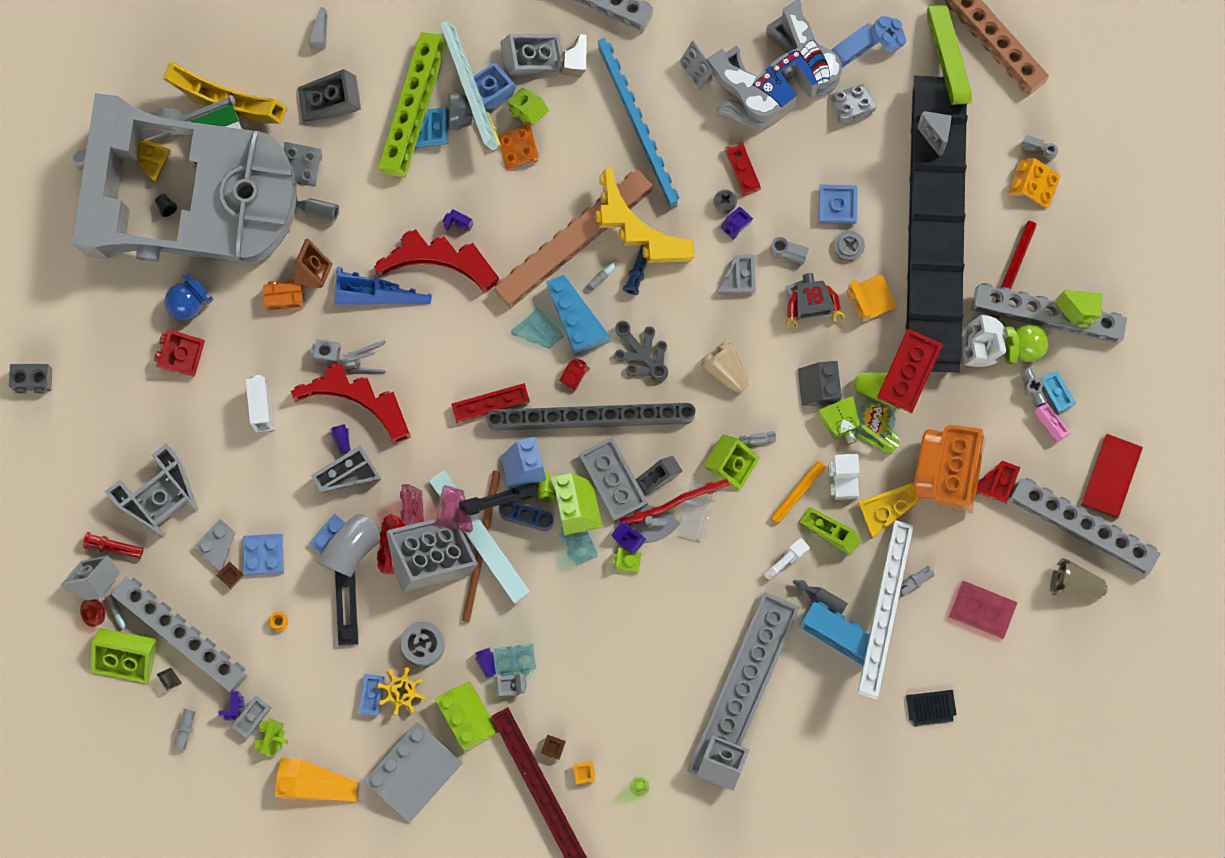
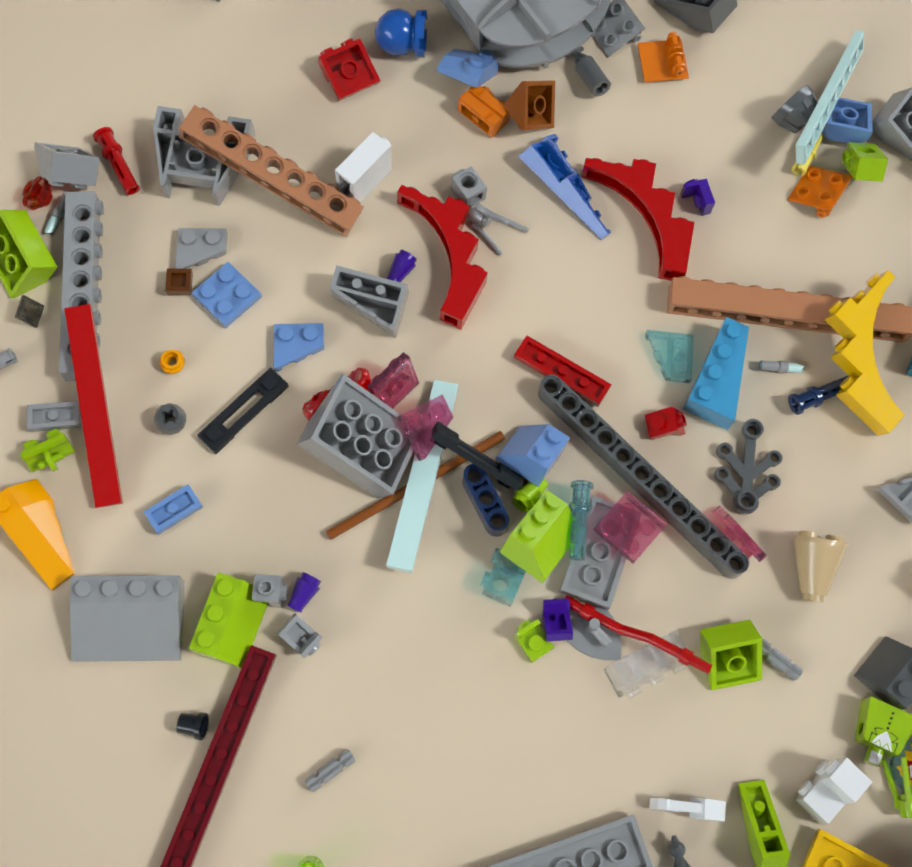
camera: 40 degrees right, 5 degrees down
(148, 485) = (235, 158): none -> nougat brick
(236, 703) = (52, 392): dark purple bracket -> none
(248, 280) = (469, 66): none -> medium blue slope
(268, 688) = (93, 406): none -> red tile
(307, 649) = (171, 427): none -> dark grey piece
(349, 155) = (663, 59): none -> orange hinge
(350, 545) = (300, 359): light grey brick -> none
(392, 694) = (205, 545): yellow gear -> none
(412, 104) = (761, 69): lime brick -> none
(416, 630) = (276, 496): light grey wheel -> none
(434, 128) = (757, 106): dark azure wing -> none
(469, 679) = (269, 589): none -> light grey bracket
(506, 784) = (193, 725): none -> black piece
(515, 654) = (336, 613): clear light blue brick -> none
(553, 747) = (273, 739): reddish brown plate -> none
(579, 467) = (580, 508): none -> clear light blue pin
(584, 772) = (274, 796): light orange plate -> none
(597, 729) = (329, 770): none -> light grey axle
(615, 450) = (630, 527): none -> clear pink plate
(659, 474) = (648, 592): dark grey arch -> none
(669, 395) = (734, 530): none -> clear pink wing
(798, 492) = (767, 753): light orange axle -> none

